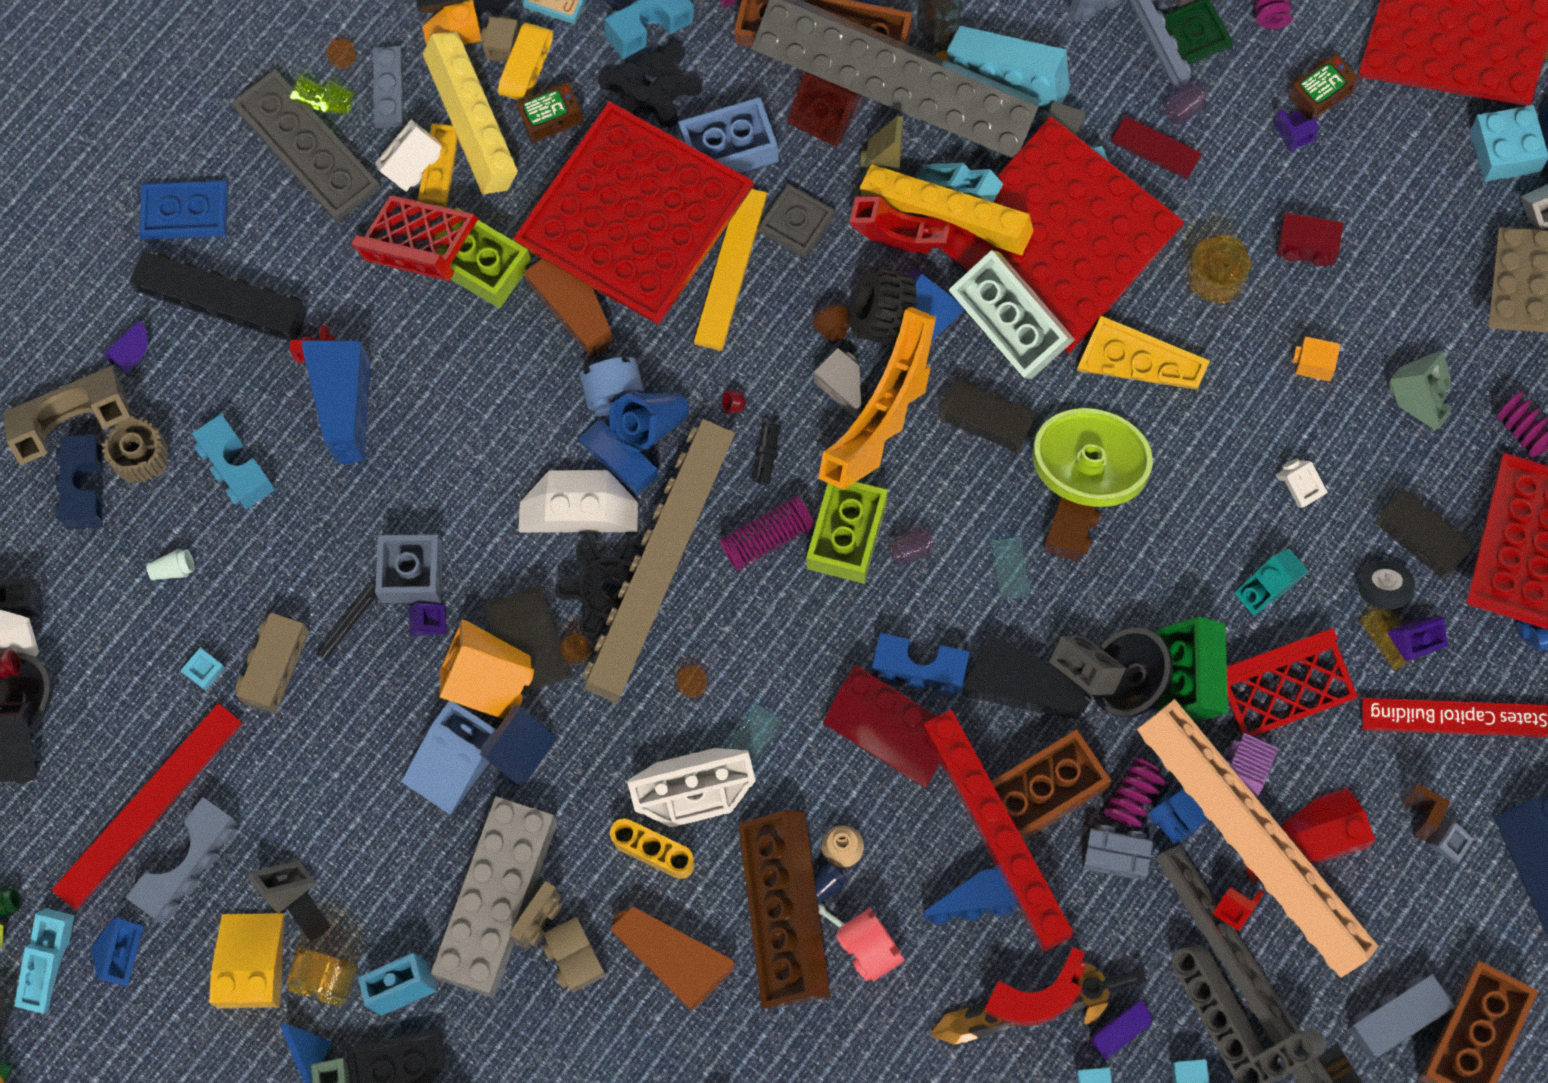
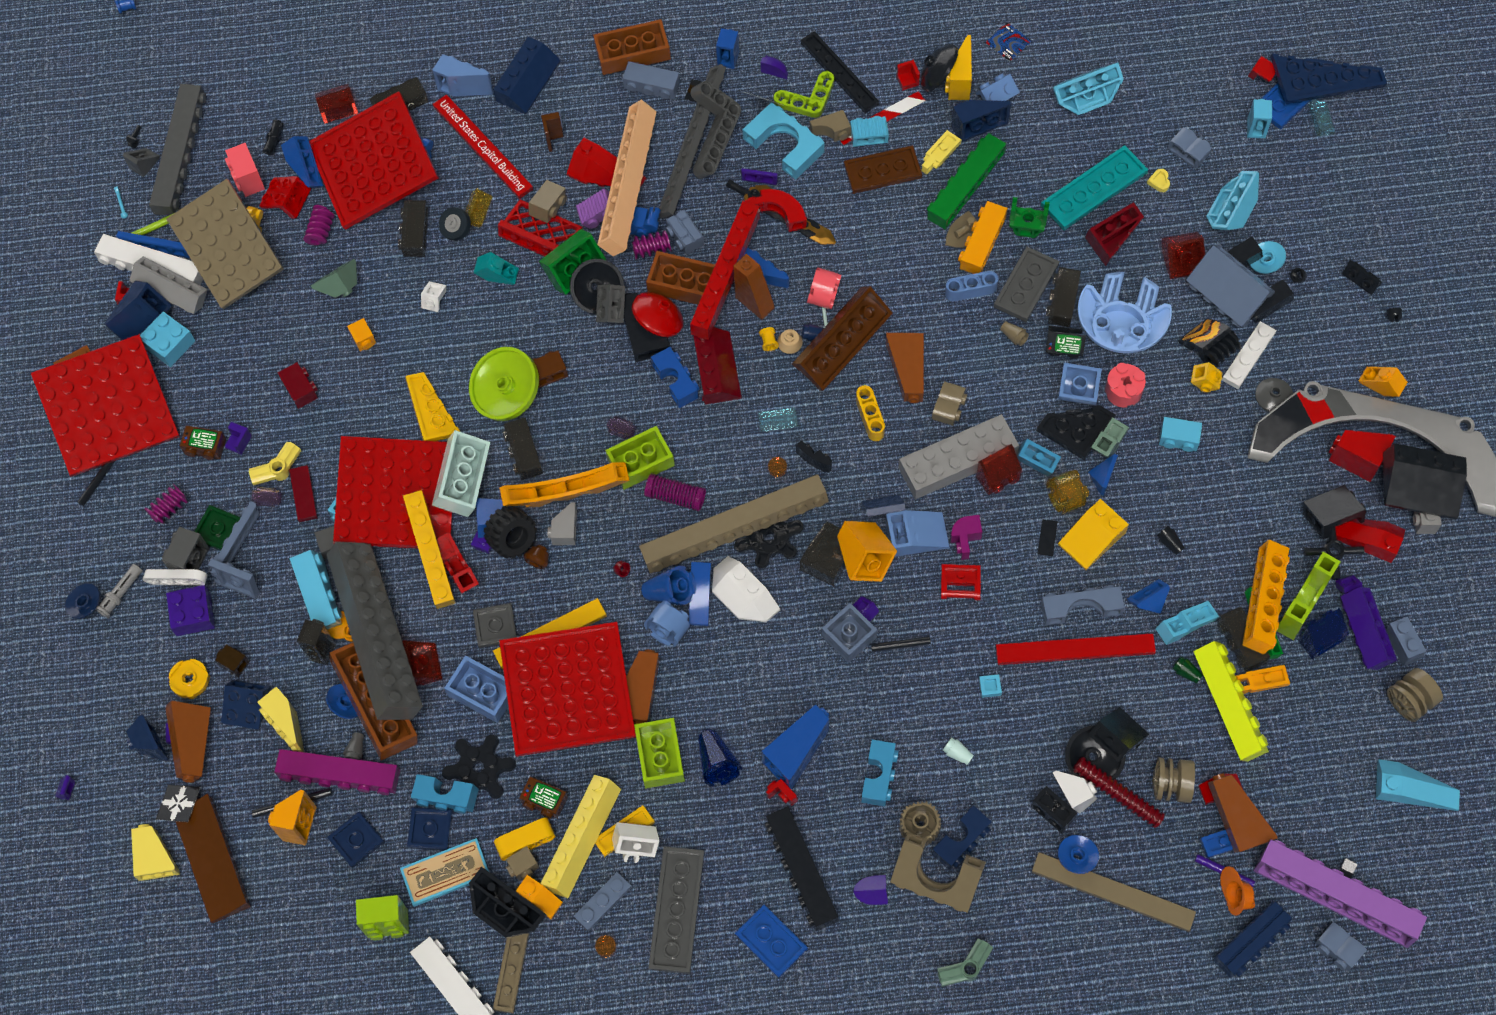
camera: 135 degrees left, 5 degrees down
(153, 1046) = (1171, 540): none -> black cone
(272, 663) = (955, 655): dark tan brick -> none
(282, 883) = (1046, 551): dark grey slope -> none
(331, 98) = (642, 928): clear neon green slope -> none
(355, 759) = (960, 576): none -> red plate
(401, 816) = (965, 530): none -> magenta brick
(406, 255) = (694, 784): red fence -> none
(415, 310) = (717, 760): none -> clear blue cone
(427, 923) = (999, 470): none -> clear red slope
(541, 908) = (945, 427): dark tan plate -> none
(575, 649) = (812, 527): clear orange tile -> none
(650, 732) = (817, 460): none -> black slope
(692, 786) = (823, 419): white wedge -> none
(766, 453) = (634, 531): black pin -> none
(867, 821) = (768, 338): none -> yellow bush
(885, 147) = (421, 603): olive slope -> none
(944, 847) = (751, 287): none -> dark orange slope
(958, 177) = (409, 560): medium azure slope -> none
(1010, 568) = (590, 381): clear light blue tile -> none
(1028, 694) = (657, 314): none -> red dish
(1215, 283) = (351, 408): clear yellow brick -> none
(1218, 155) = (268, 471): none -> light yellow piece
(1236, 908) = (664, 168): red panel -> none
(1318, 721) = (547, 201): none -> dark tan brick
(1419, 637) = (468, 193): dark purple slope -> none

